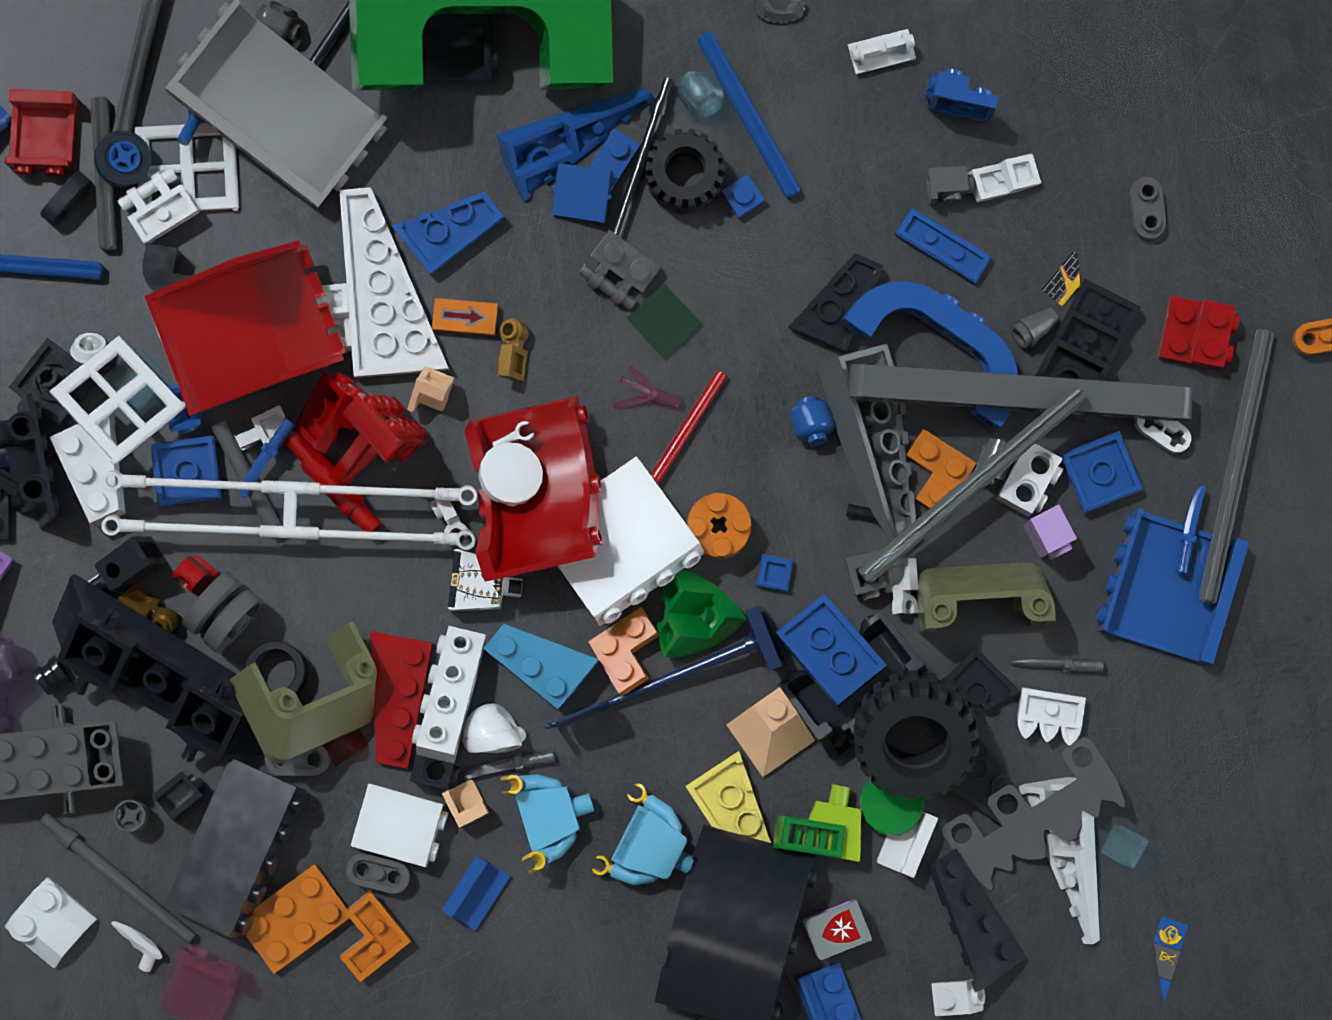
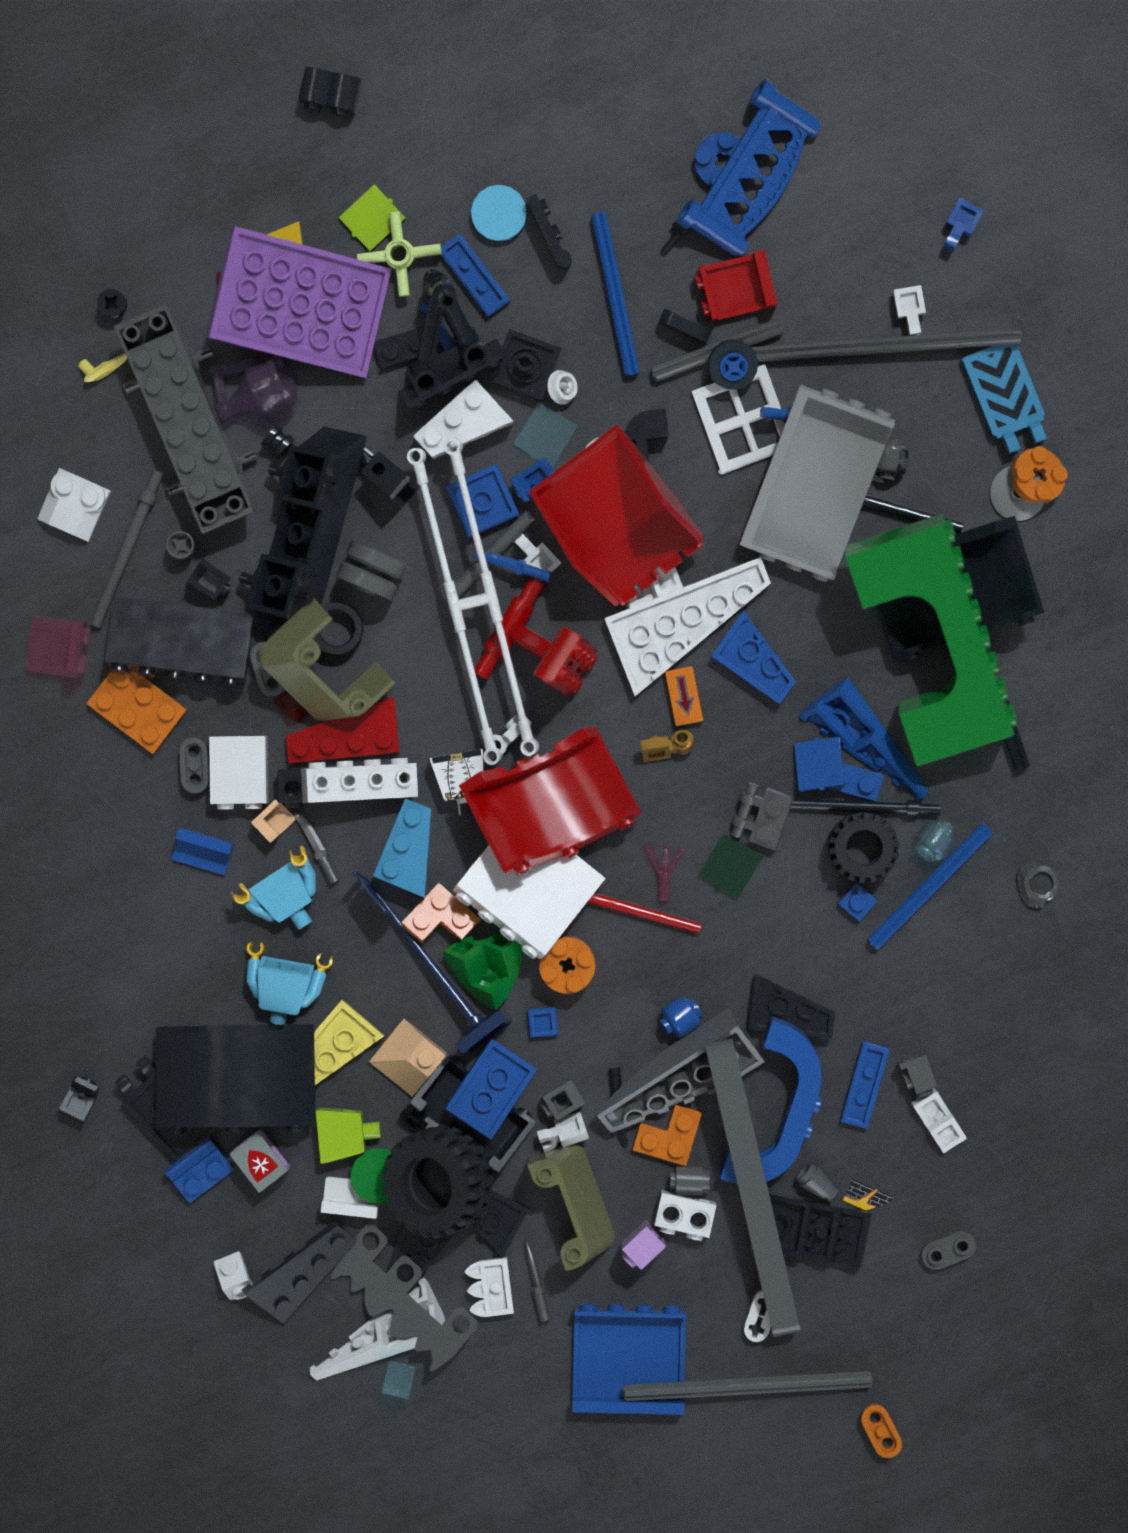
camera: 75 degrees right, 5 degrees up
(118, 399) = (523, 426): white window -> none
(141, 943) = (79, 585): white bar -> none
(147, 606) = (359, 503): pearl gold plate -> none
(163, 213) = (695, 413): white plate -> none
(195, 574) = (397, 537): red leg -> none
(323, 411) = (568, 607): red plate -> none
(381, 937) = (140, 784): orange plate -> none
(431, 389) = (612, 687): light nougat panel -> none
(491, 730) = (339, 824): white piece -> none
(510, 474) = (558, 777): white tile -> none
(515, 435) = (591, 769): white hand -> none
(782, 833) = (328, 1092): green slope -> none
(882, 51) = (1019, 984): white hinge -> none
(950, 96) = (996, 1056): blue plate -> none
(973, 484) = (662, 1169): dark grey axle -> none
(1101, 472) = (708, 1273): blue plate -> none
(1167, 949) = (325, 1439): sticker -> none
(1188, 536) = (679, 1361): blue piece -> none
(1198, 333) = (852, 1322): red plate -> none

